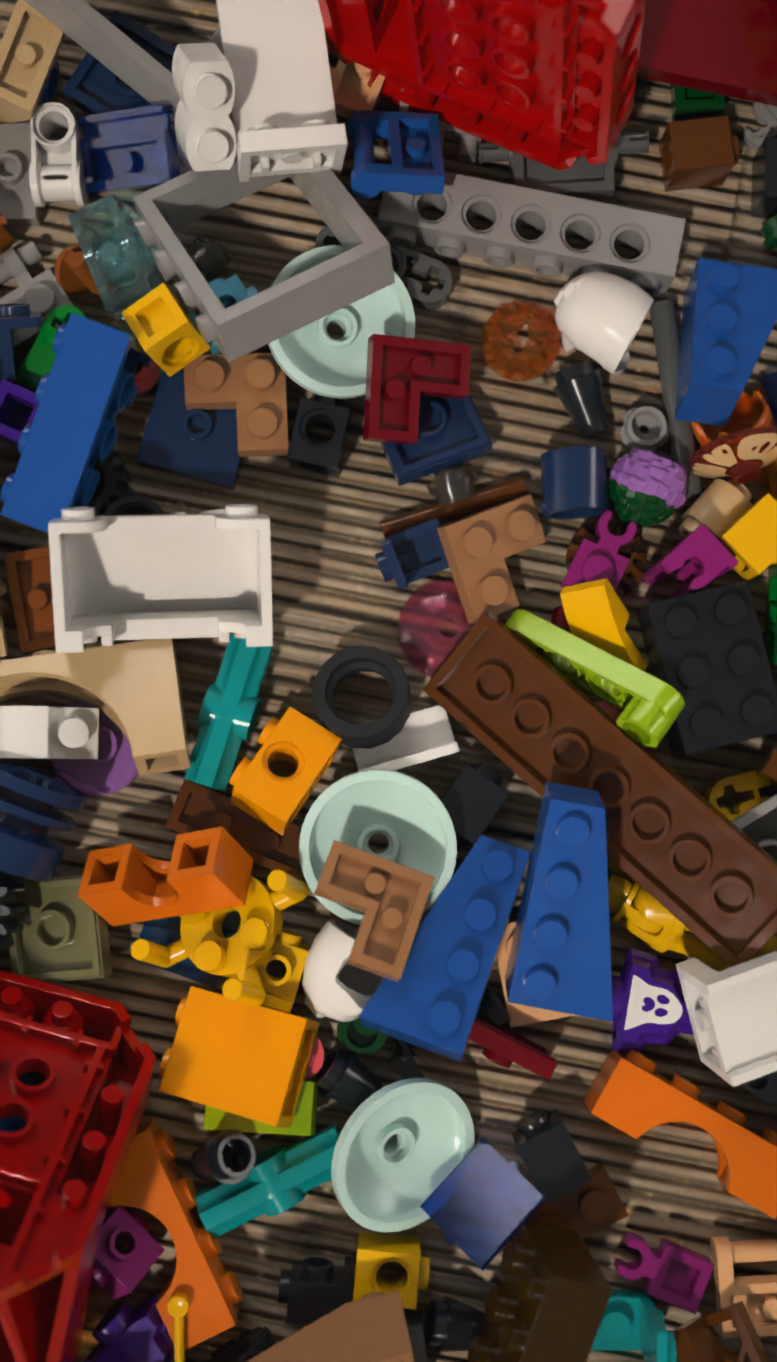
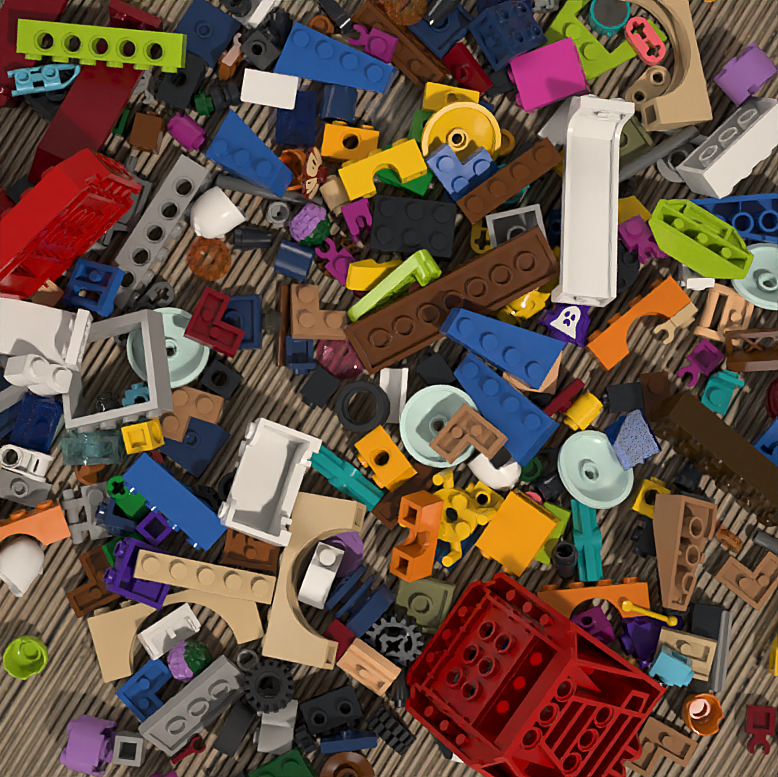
camera: 65 degrees left, 0 degrees up
(366, 610) = (319, 389): none -> black brick
(498, 1090) = (582, 412): none -> yellow brick
(724, 220) = (187, 132): none -> magenta brick
(729, 1209) = (681, 318): none -> tan plate

